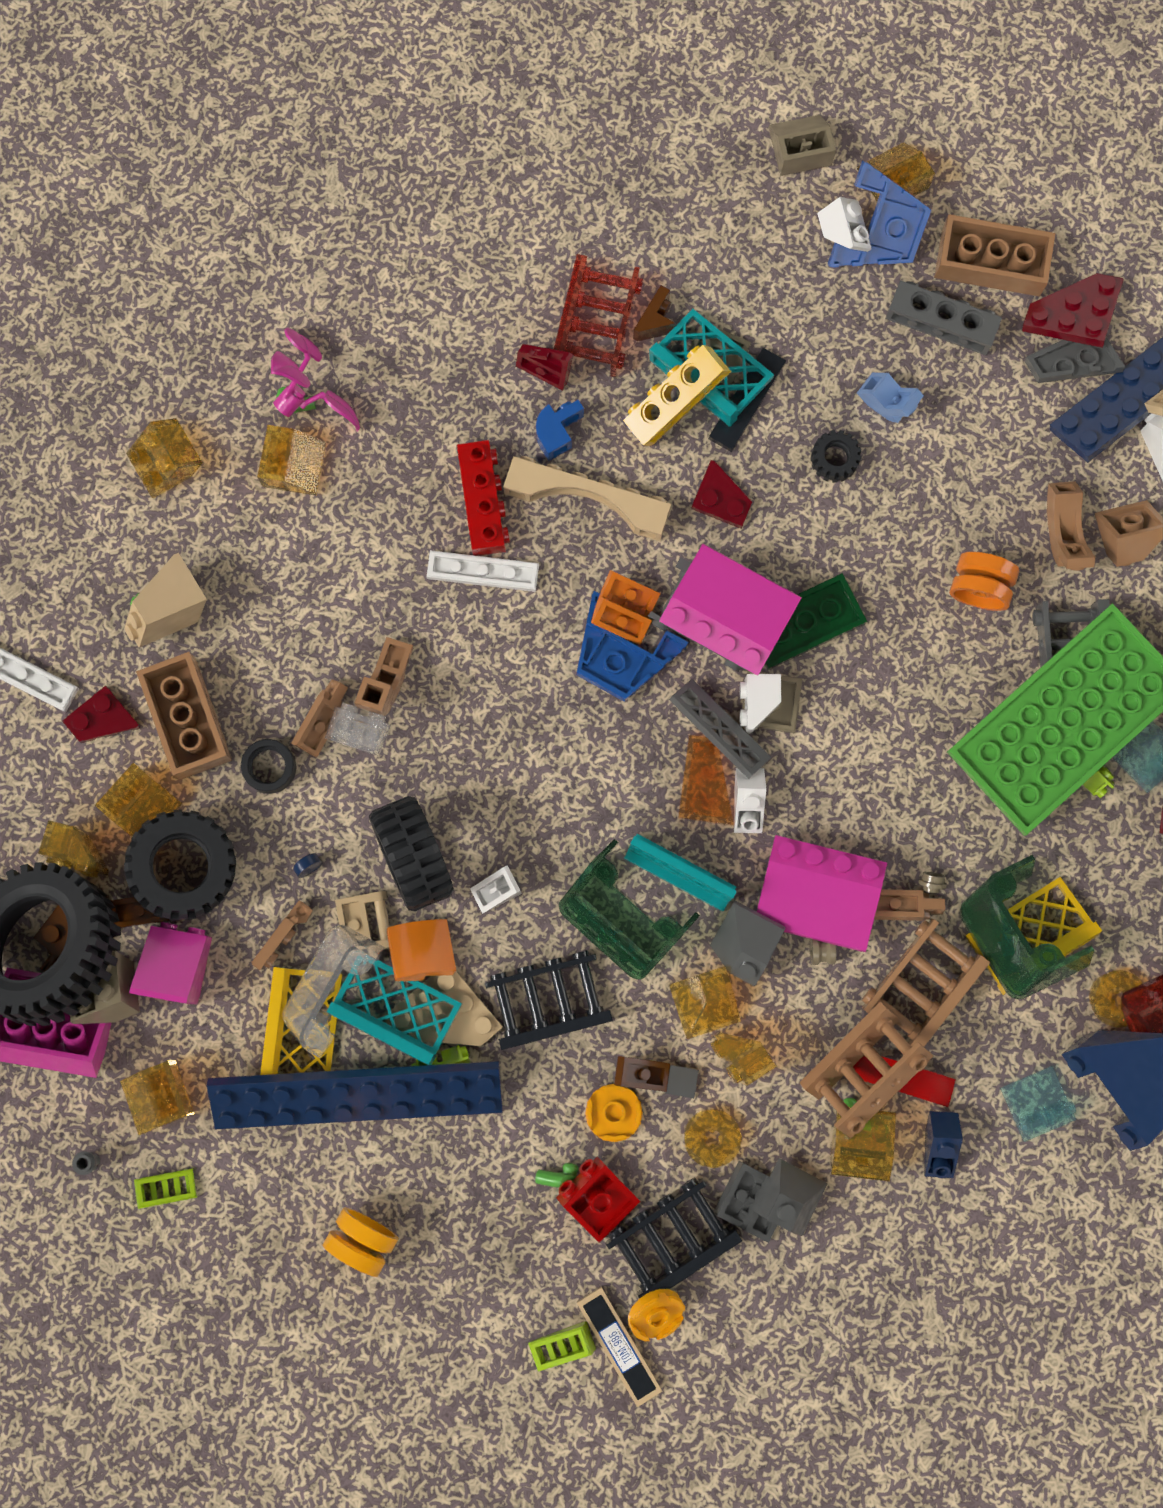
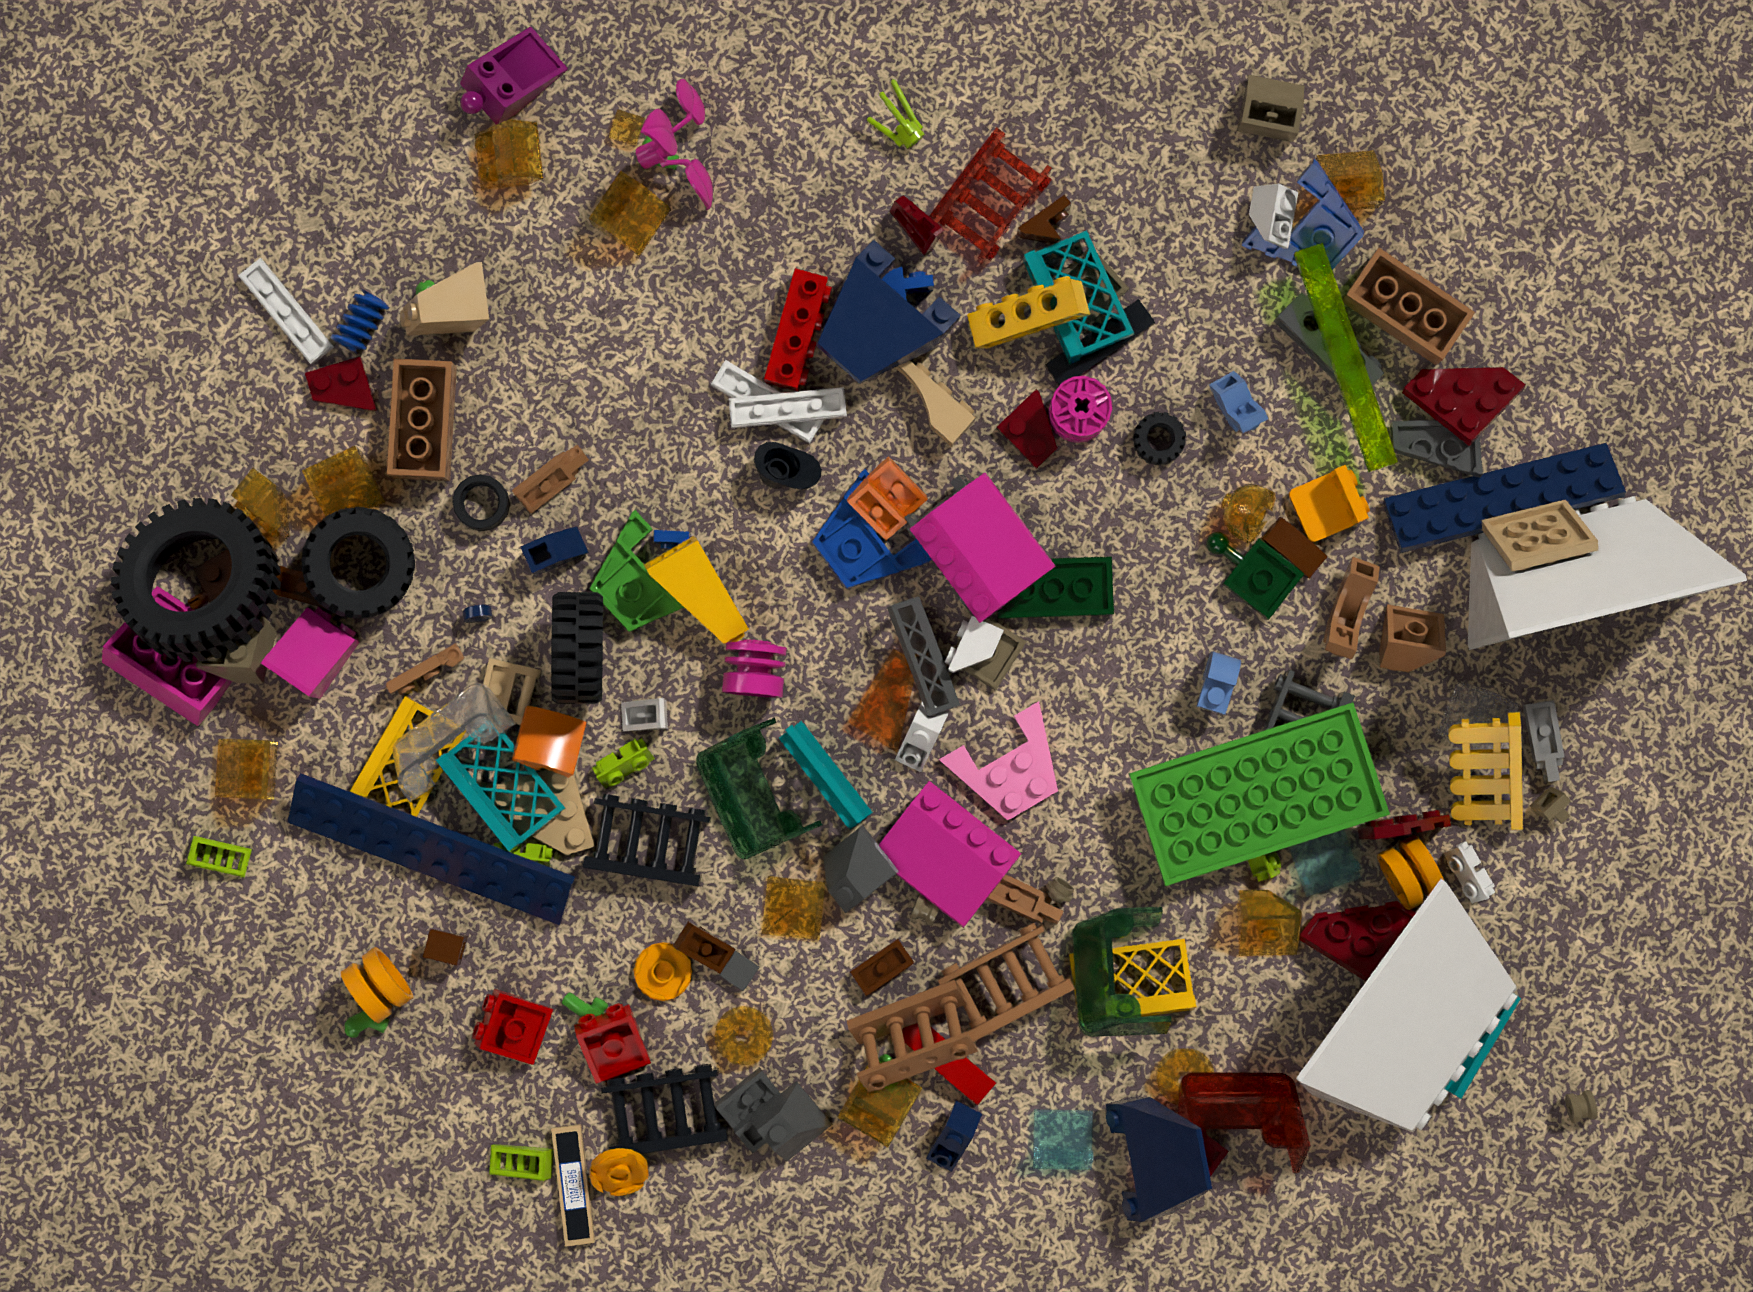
camera: 20 degrees right, 5 degrees up
(79, 1162) = (150, 797): dark grey pin -> none
(91, 654) = (360, 321): none -> blue piece
(135, 390) = (510, 76): none -> magenta slope
(257, 391) = (626, 127): none -> clear yellow tile
(352, 779) = (554, 550): none -> dark blue slope
(356, 729) = (580, 505): clear slope -> none
(360, 1282) = (362, 1021): none -> bright green arm
(381, 690) = (616, 479): medium nougat arch -> none
(407, 1178) = (445, 947): none -> reddish brown panel
(436, 783) = (626, 584): none -> bright green wing
(451, 725) = (670, 539): none -> blue bracket
(489, 952) = (635, 758): none -> lime hinge
(492, 753) = (696, 586): none -> yellow slope
(500, 1224) = (512, 1026): none -> red plate
(502, 290) = (909, 130): none -> lime plant
(503, 567) = (787, 407): none -> white tile
(524, 618) = (786, 467): none -> black piece
(548, 461) = (874, 325): none -> dark blue wedge
(576, 805) = (754, 669): none -> dark pink wheel
(745, 1056) = (806, 973): clear yellow slope -> none
(752, 473) = (1080, 425): none -> dark pink wheel
(807, 1020) = (882, 967): none -> reddish brown plate
(847, 802) = (1016, 778): none -> bright pink wing
(939, 483) = (1246, 510): none -> clear yellow cylinder
(965, 317) = (1345, 357): none -> clear neon green plate
(973, 531) = (1260, 576): none -> dark green plate
(984, 581) = (1242, 625): orange wheel -> none
(985, 635) = (1219, 680): none -> medium blue brick
(994, 497) = (1294, 547): none -> reddish brown slope
(1007, 447) = (1329, 504): none -> light orange bracket
(1126, 831) = (1266, 924): none -> clear yellow slope

